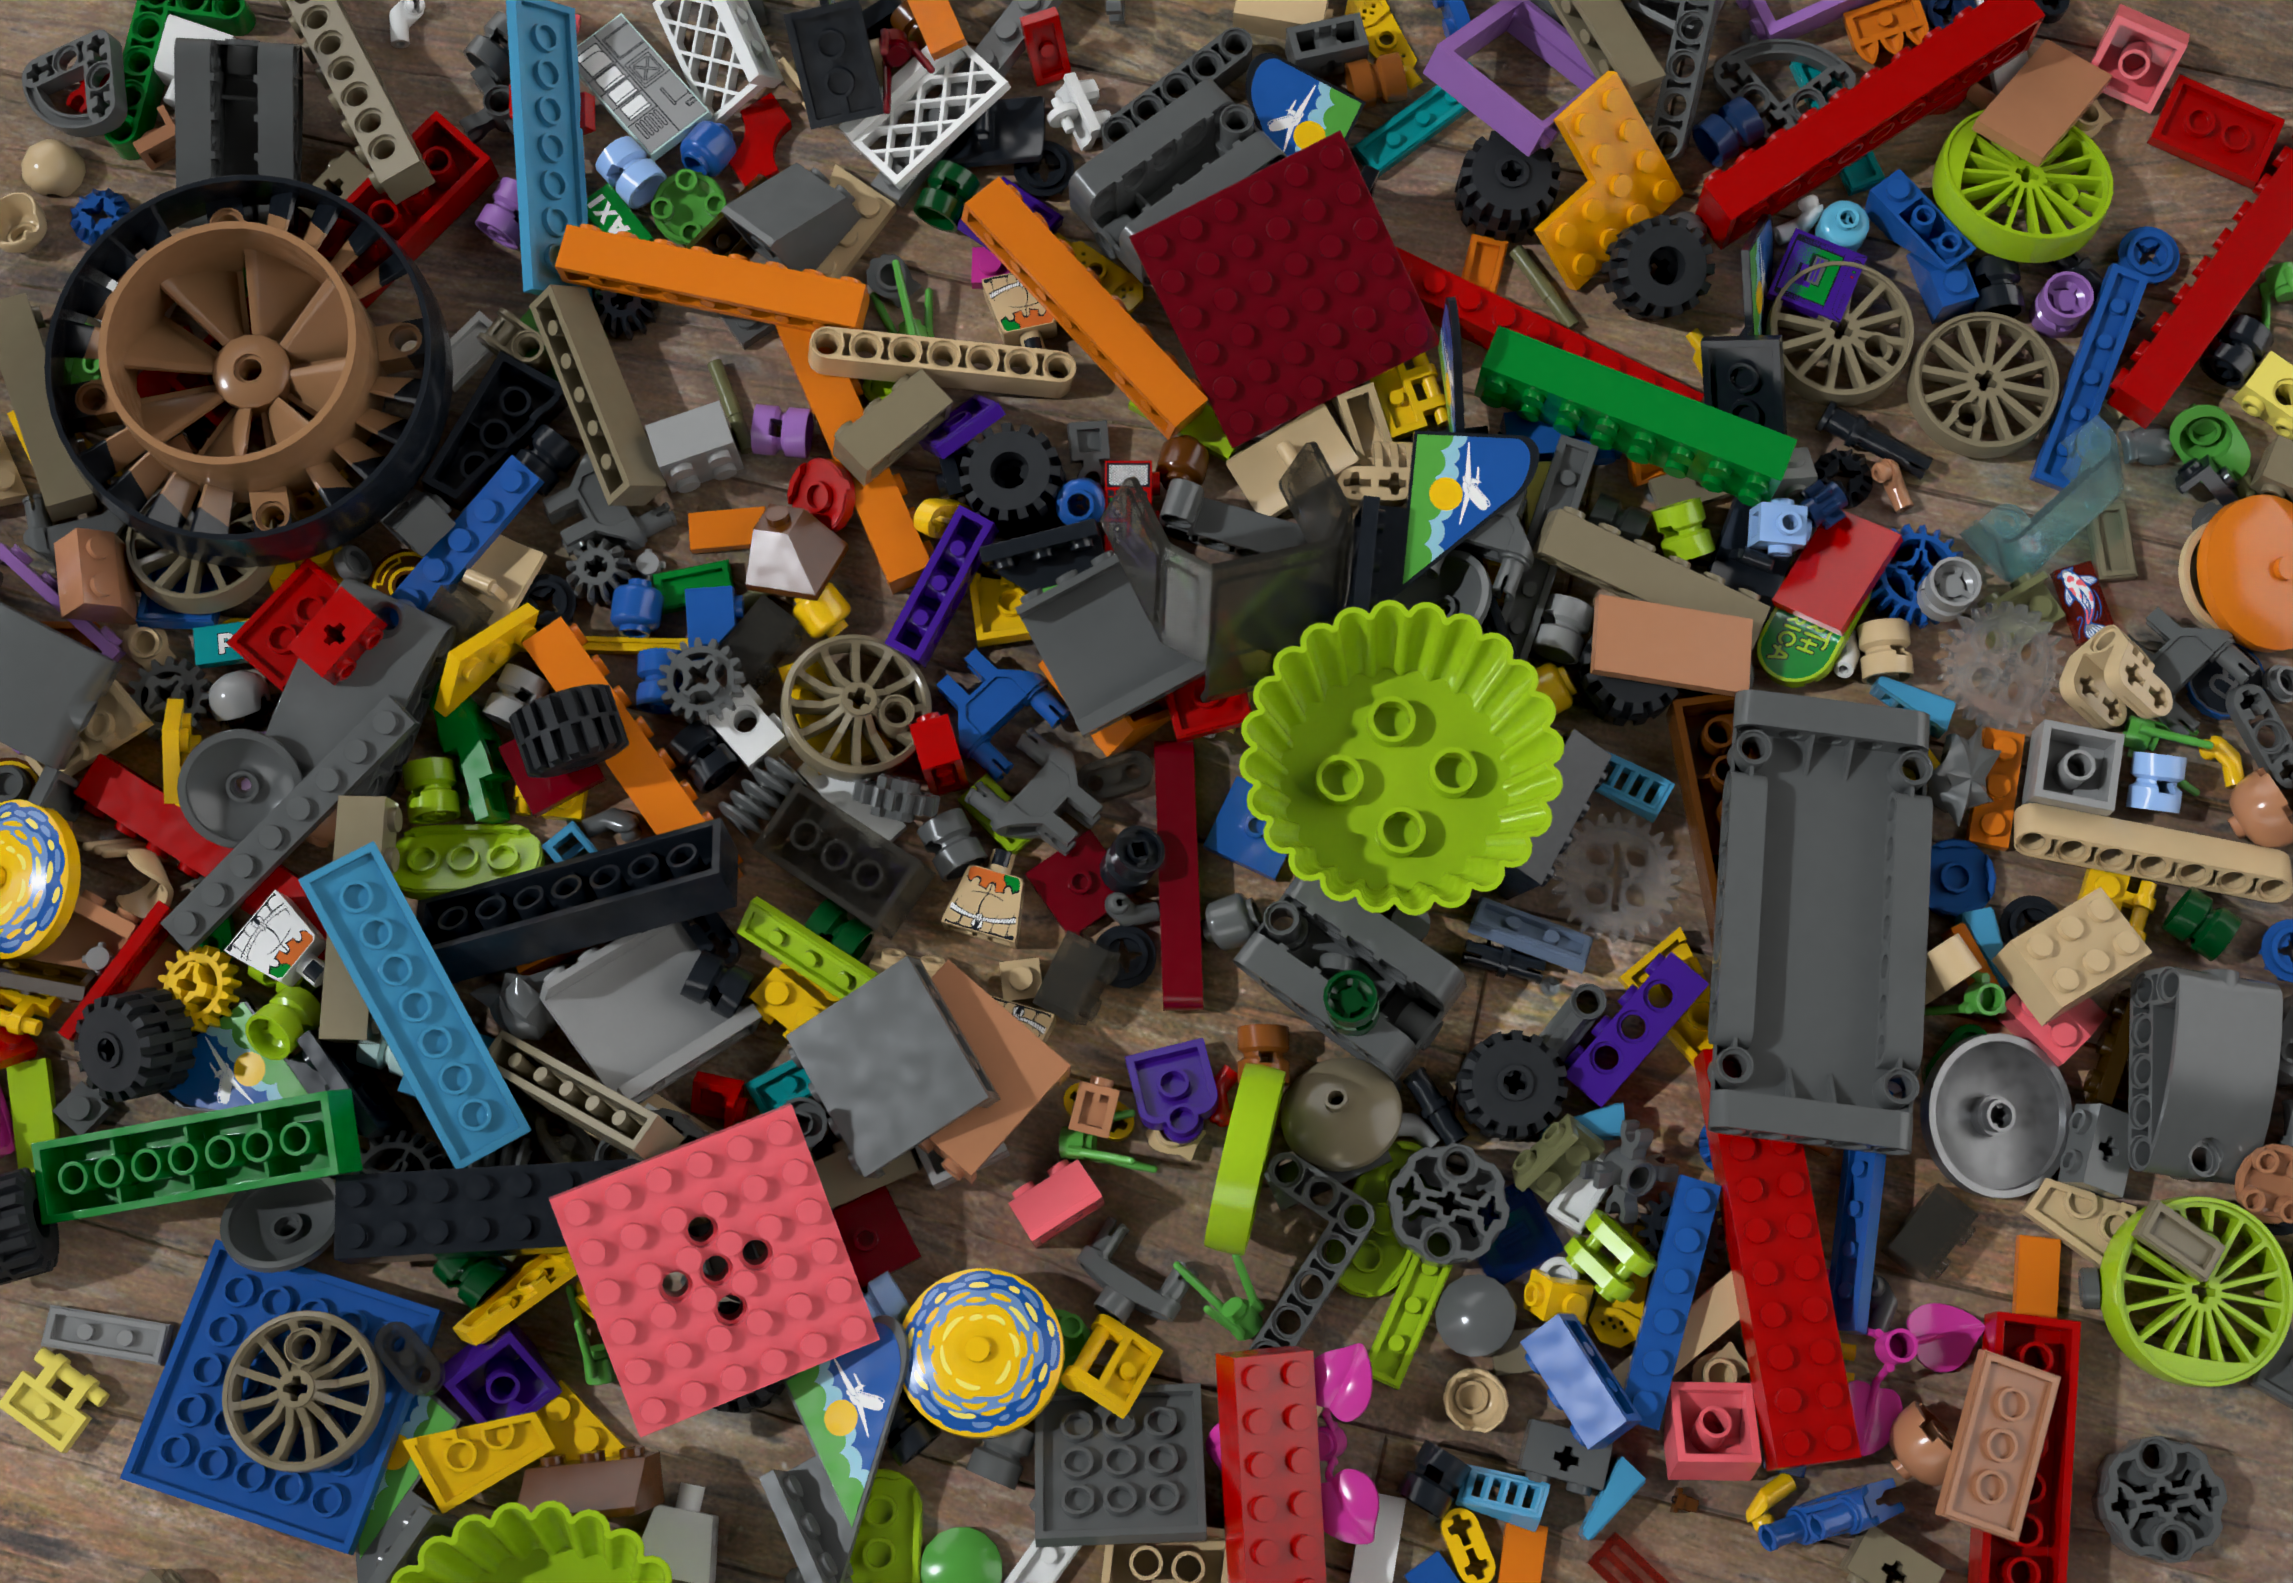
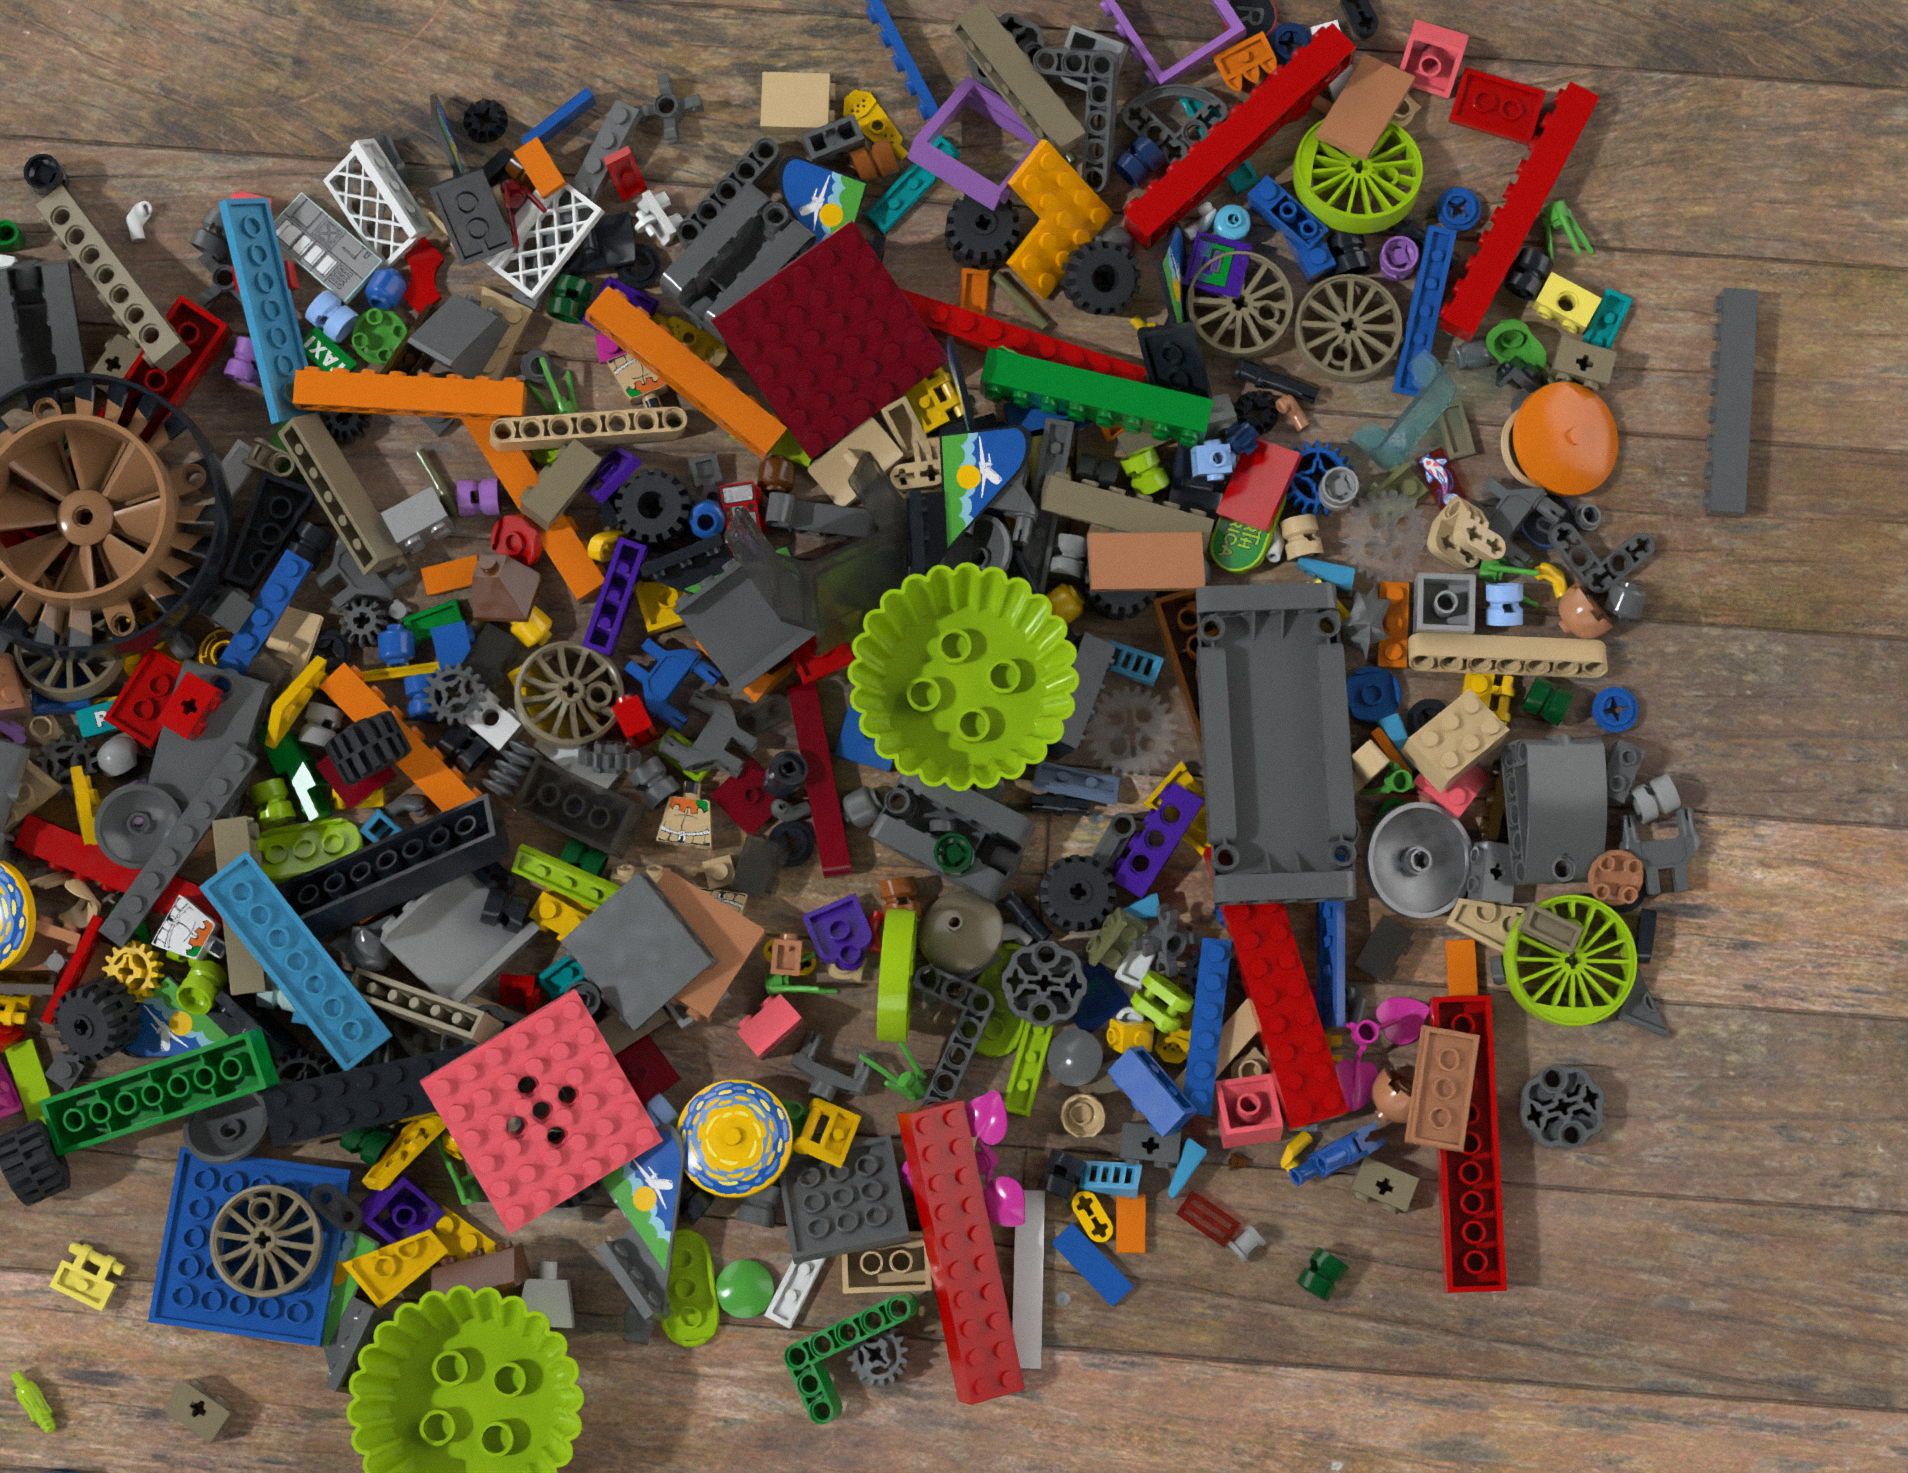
camera: 10 degrees left, 5 degrees up
(107, 1335) = (115, 1225): light grey tile -> none

